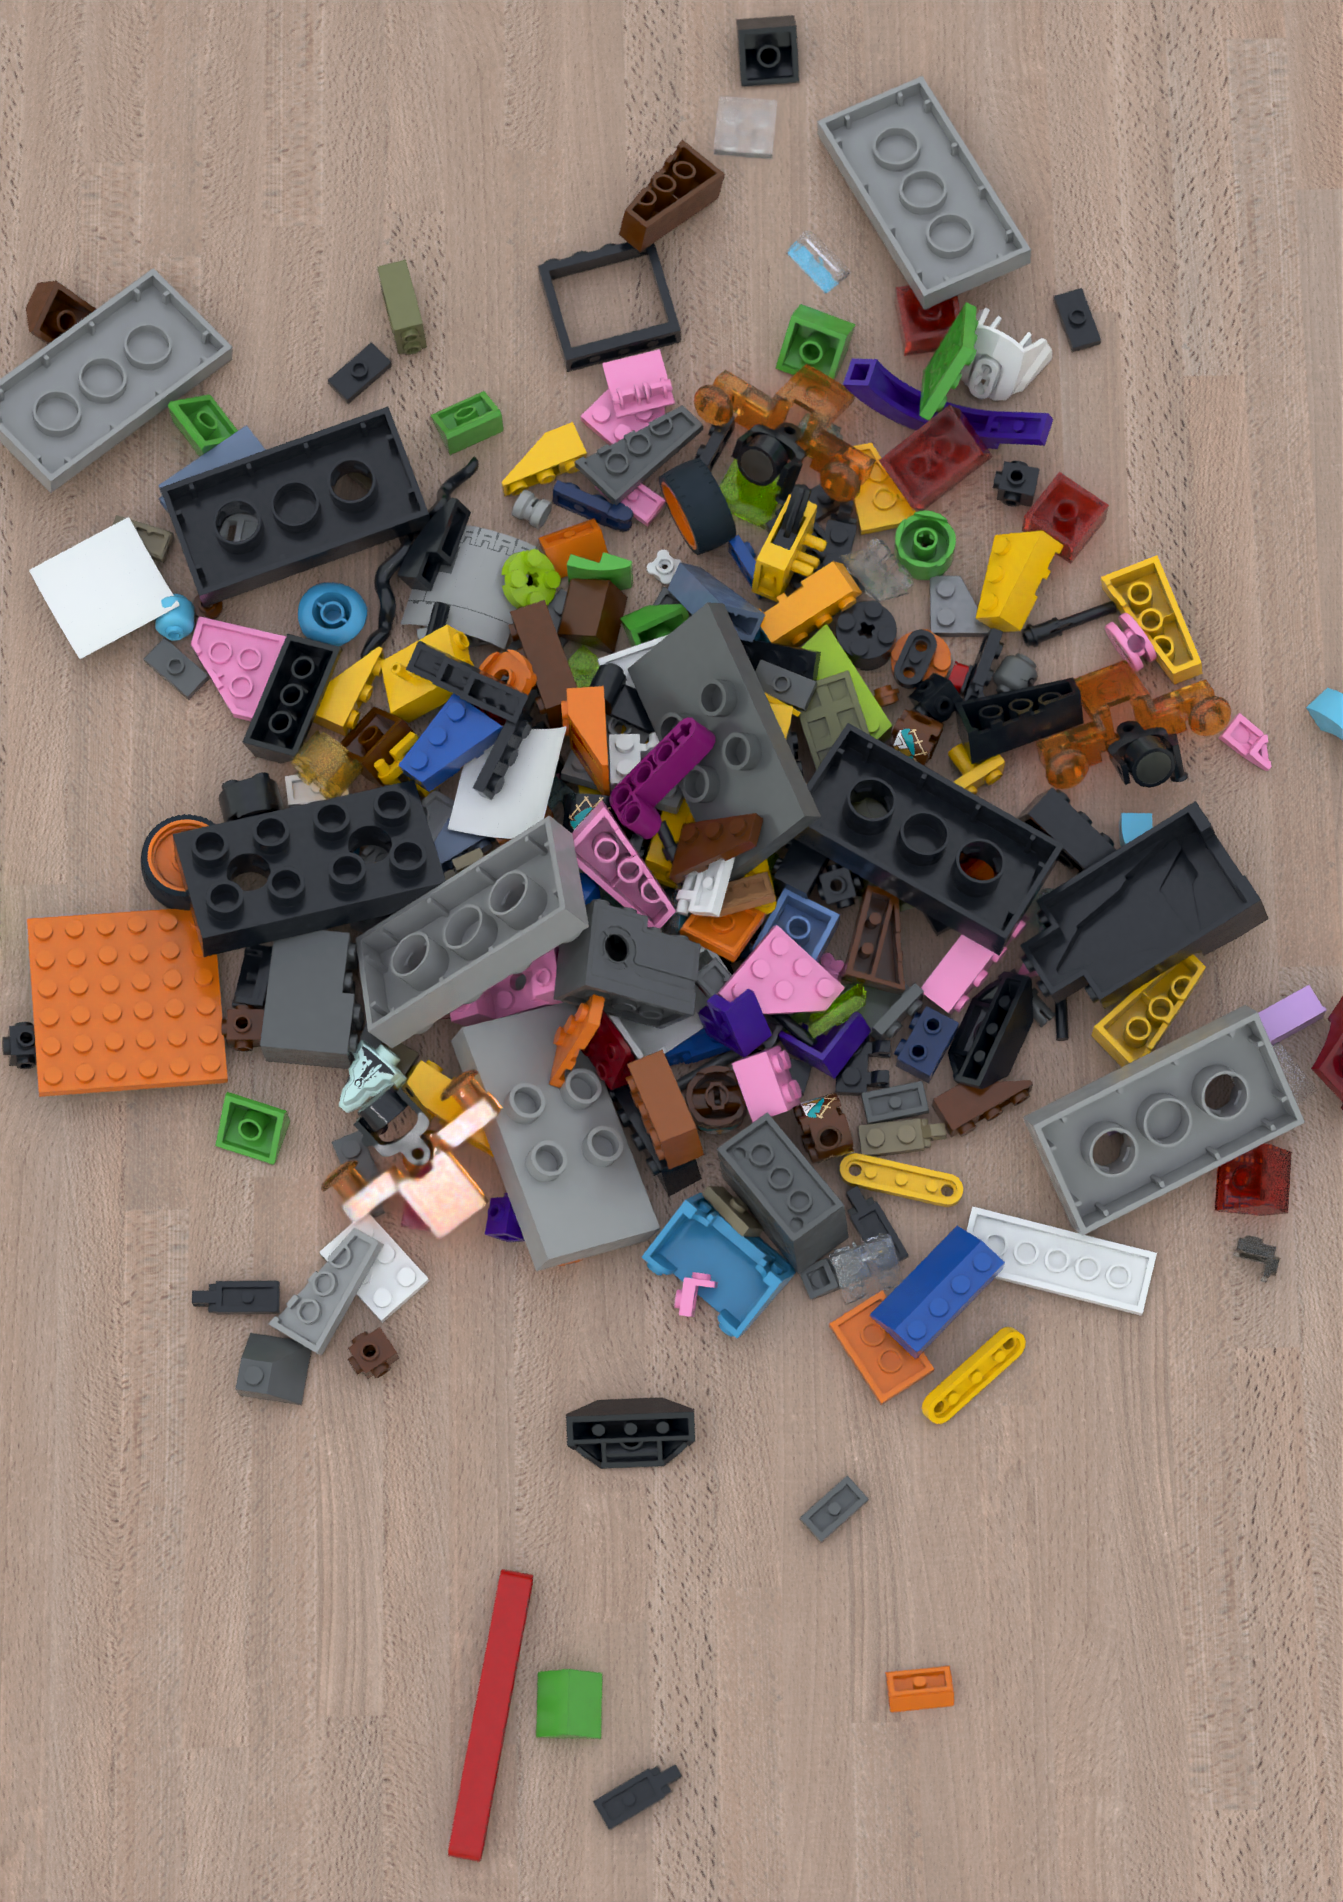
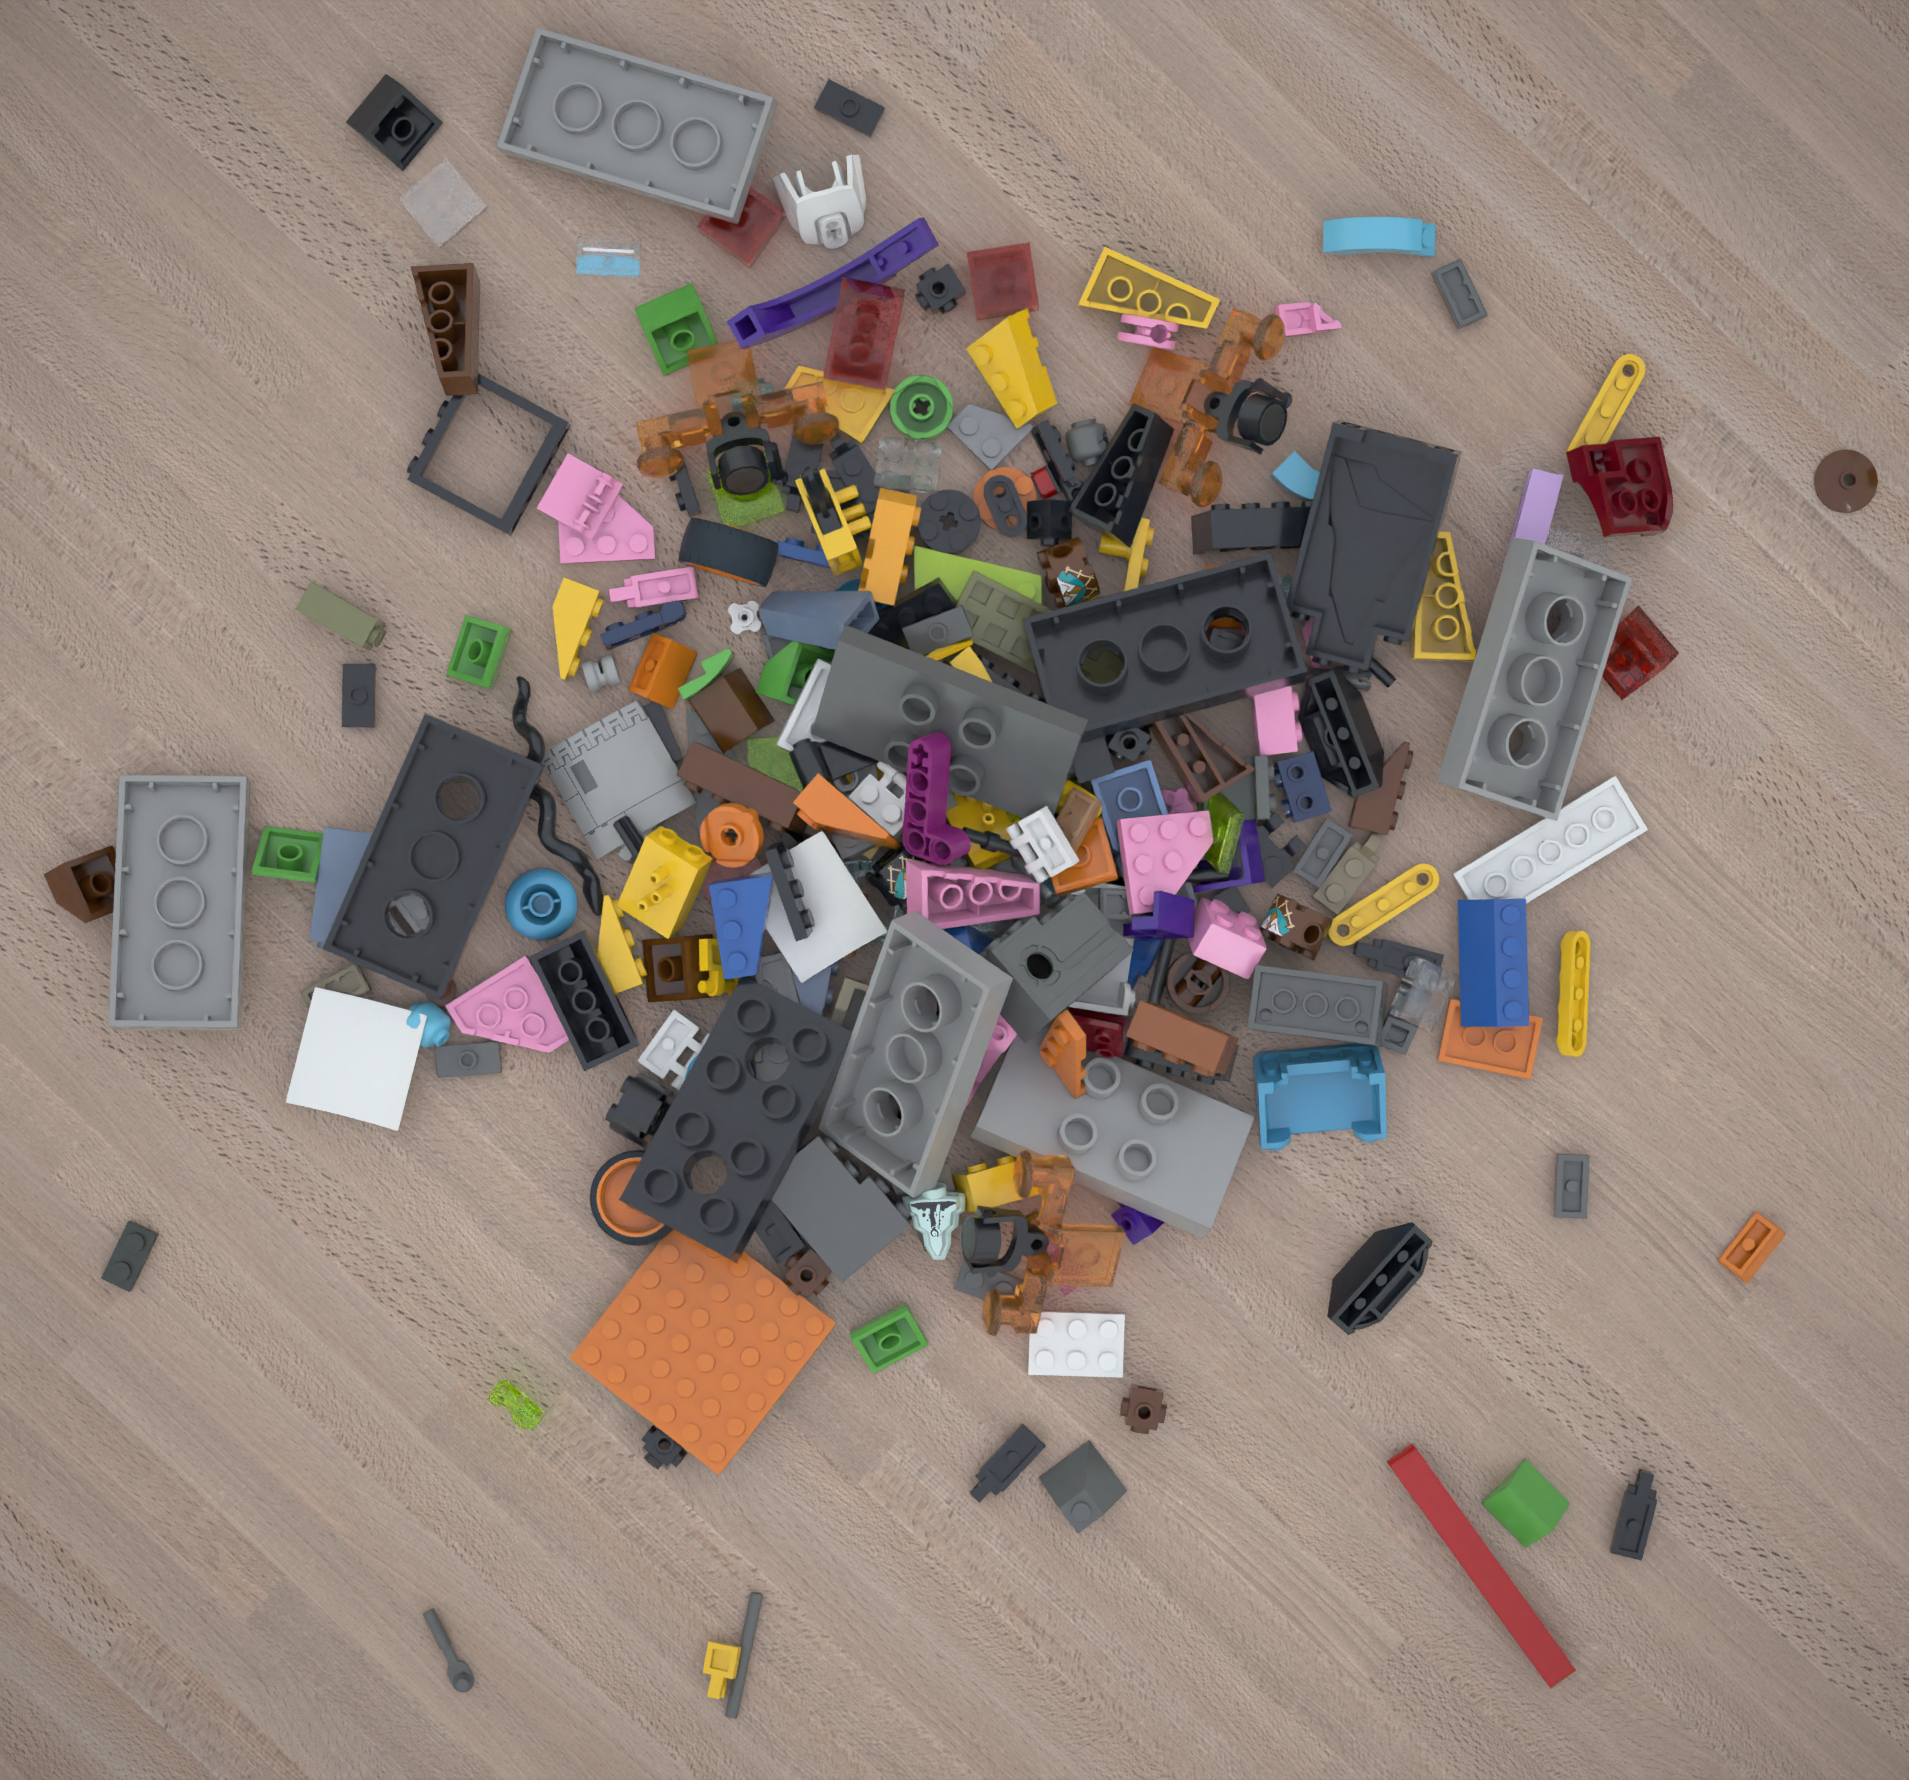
camera: 50 degrees left, 15 degrees up
(322, 1303) = (1071, 1408): light grey wing -> none
(326, 765) = (666, 1027): clear yellow brick -> none
(434, 546) = (564, 779): black slope -> none
(467, 682) = (713, 868): black slope -> none
(543, 575) = (671, 721): lime plate -> none
(629, 462) = (639, 554): dark grey wing -> none
(687, 1297) = (1320, 1144): bright pink bracket -> none
(711, 840) = (1019, 811): reddish brown wing -> none
(733, 1211) = (1290, 1050): dark tan plate -> none
(886, 695) = (1008, 554): dark orange plate -> none
(948, 361) = (803, 251): bright green plate -> none
(1052, 628) = (1077, 374): black pin -> none
(1254, 1250) = (1680, 702): clear smoke bracket -> none

